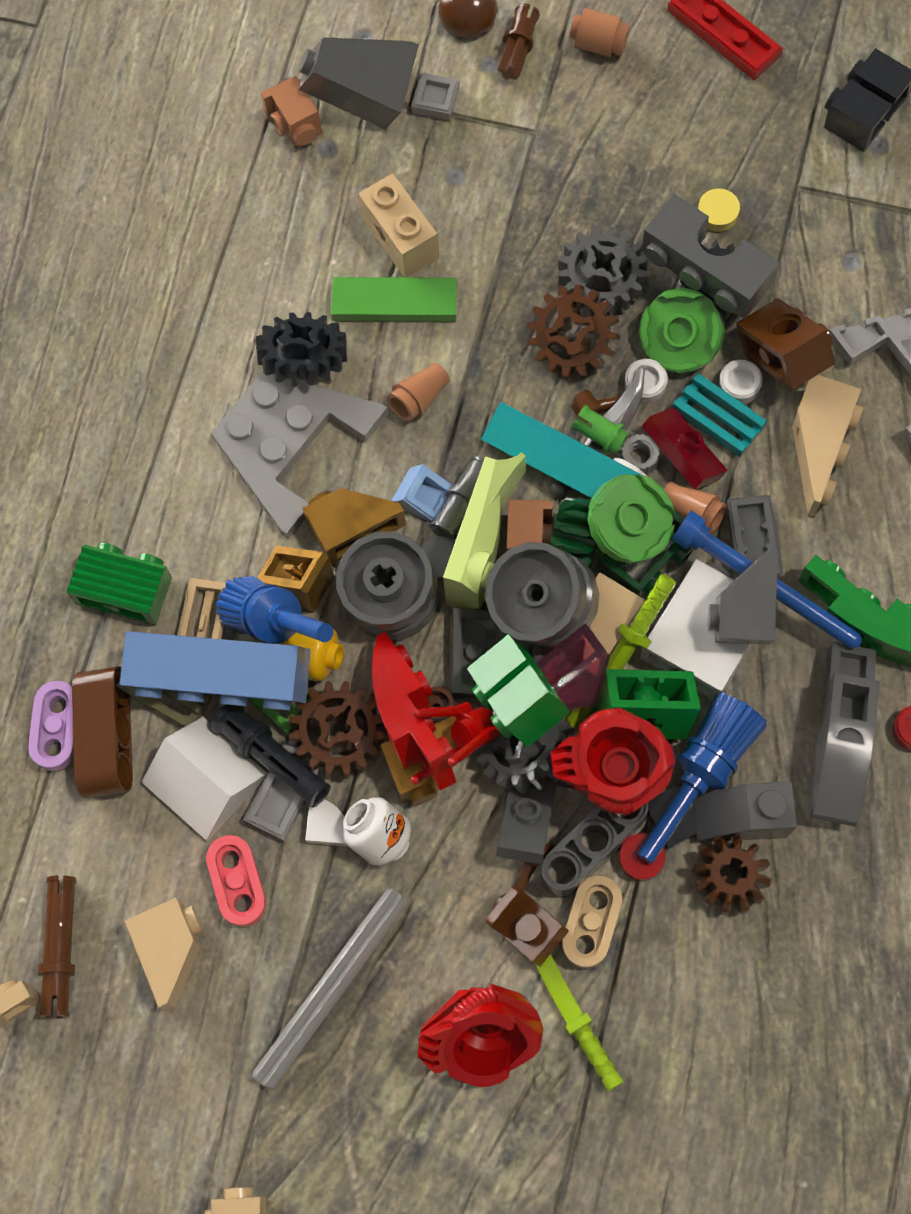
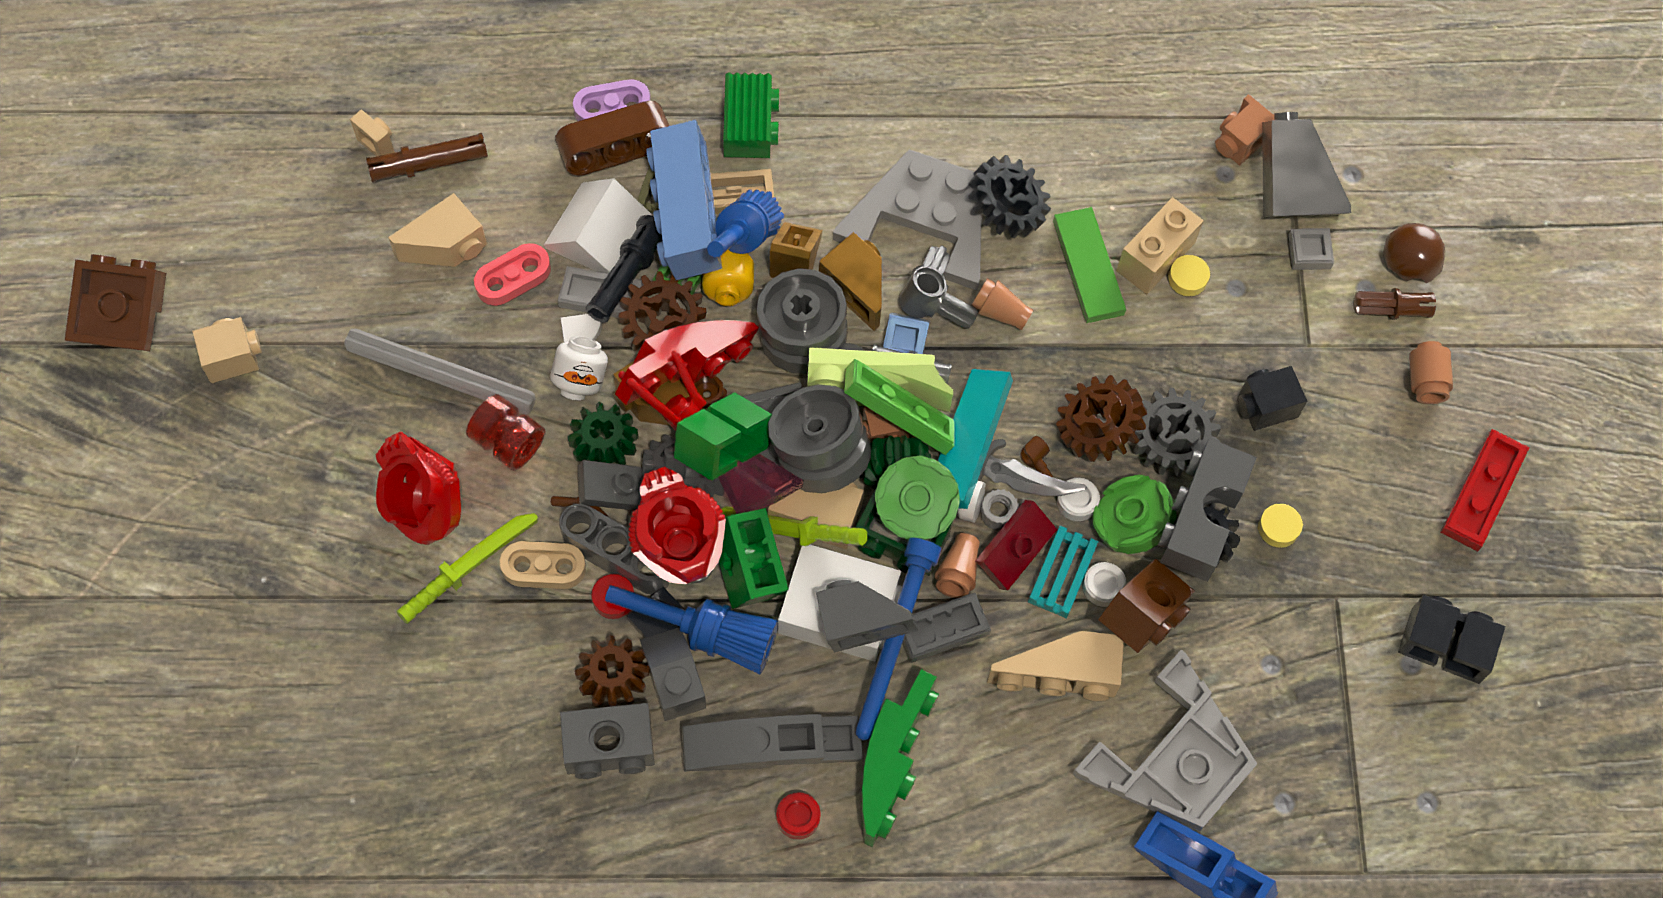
camera: 65 degrees right, 5 degrees down
(384, 454) = (927, 291): none -> dark grey axle
(437, 209) = (1189, 275): none -> light yellow tile
(445, 822) = (609, 425): none -> dark green gear
(447, 925) = (501, 428): none -> clear red wheel
(526, 925) = (527, 509): reddish brown bracket -> none
(527, 508) = (899, 406): none -> bright green tile
(589, 175) = (1271, 397): none -> black brick
(602, 432) = (1006, 465): bright green pin -> none
(789, 920) = (586, 727): none -> dark grey brick

